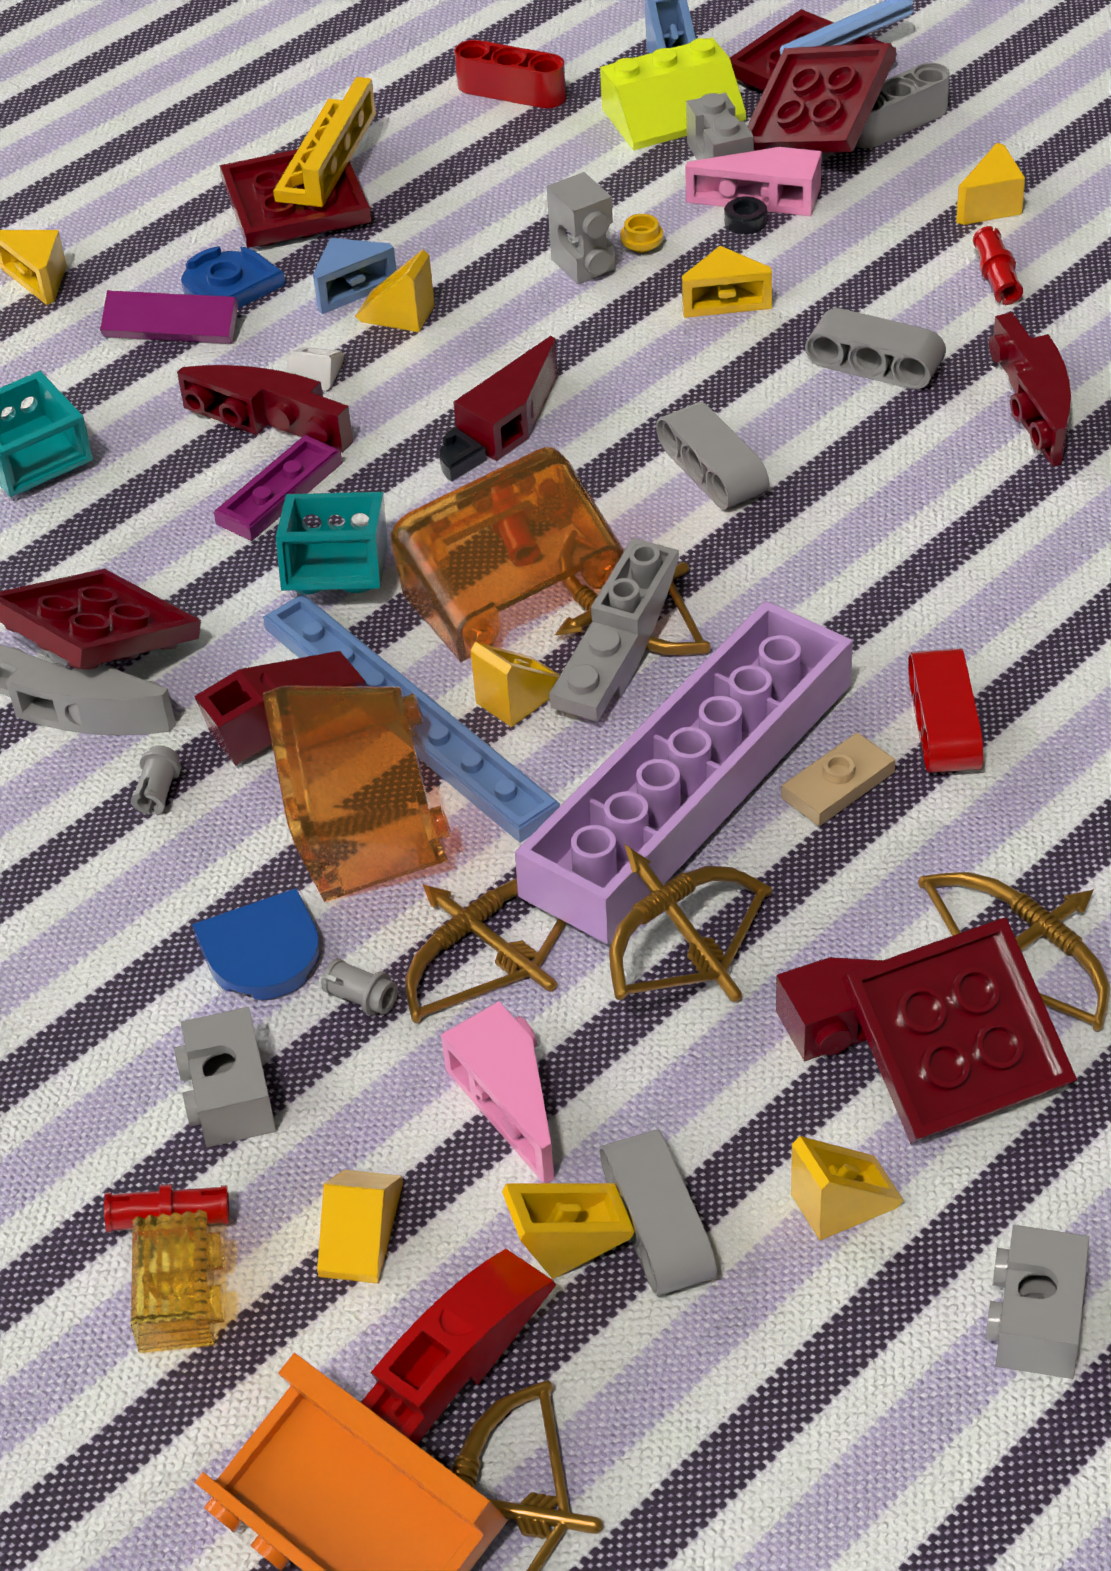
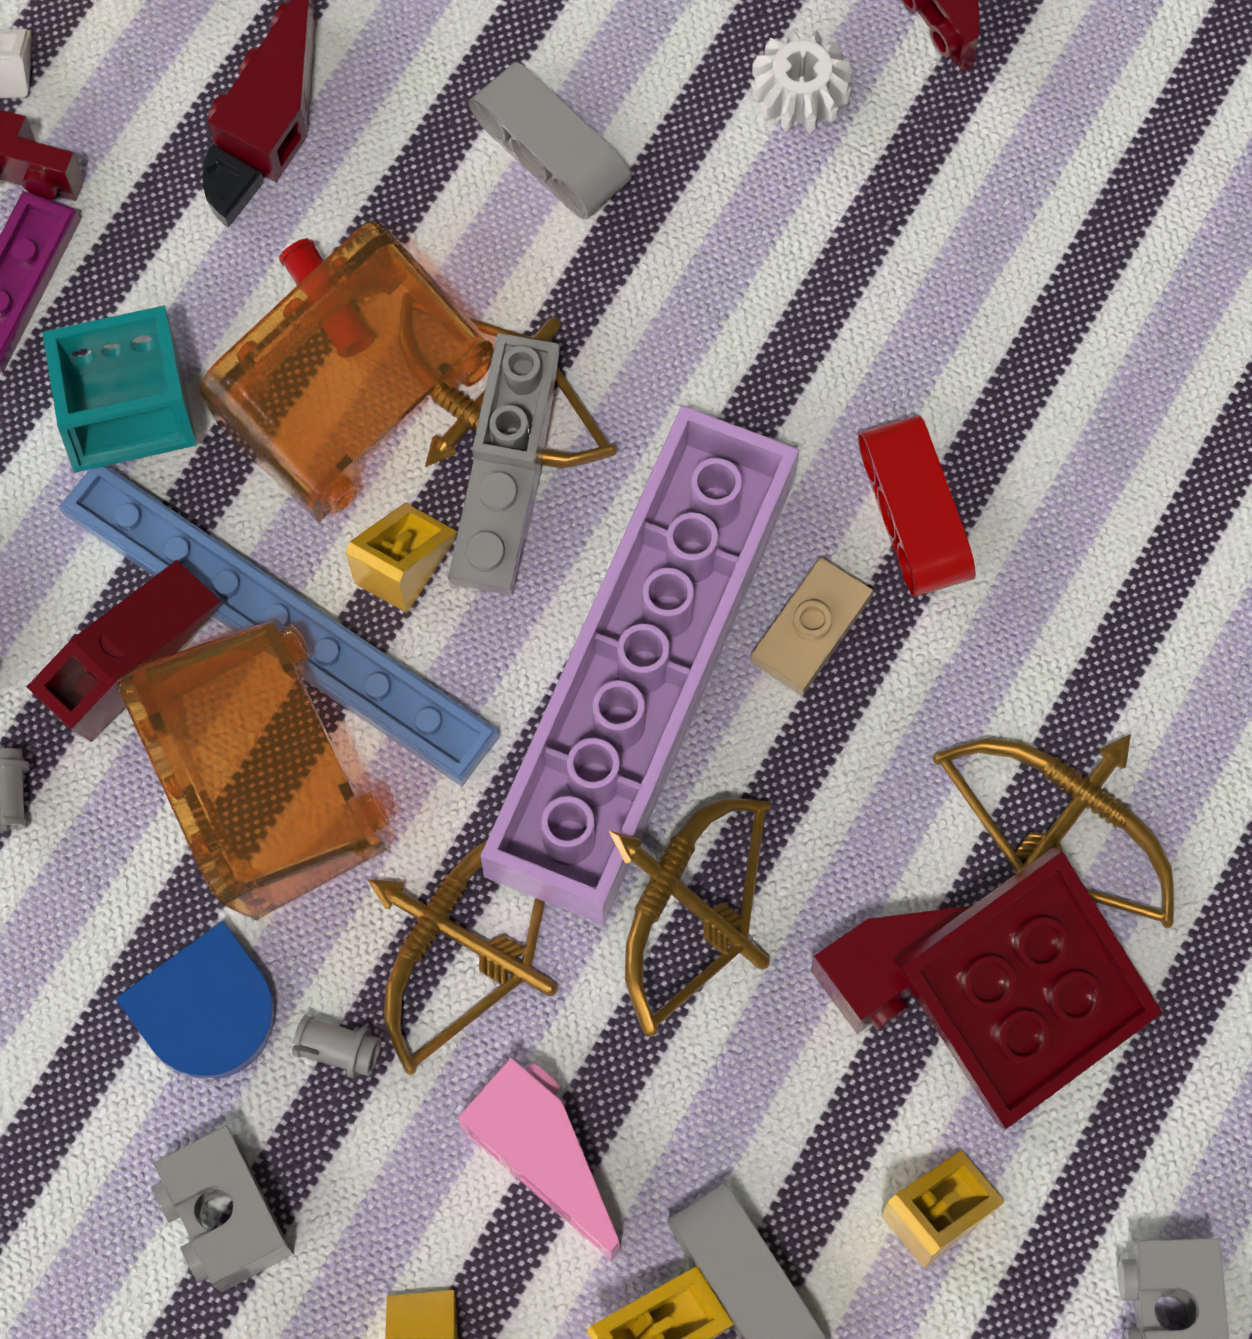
camera: 15 degrees left, 25 degrees up
(919, 445) = (820, 87): none -> white gear

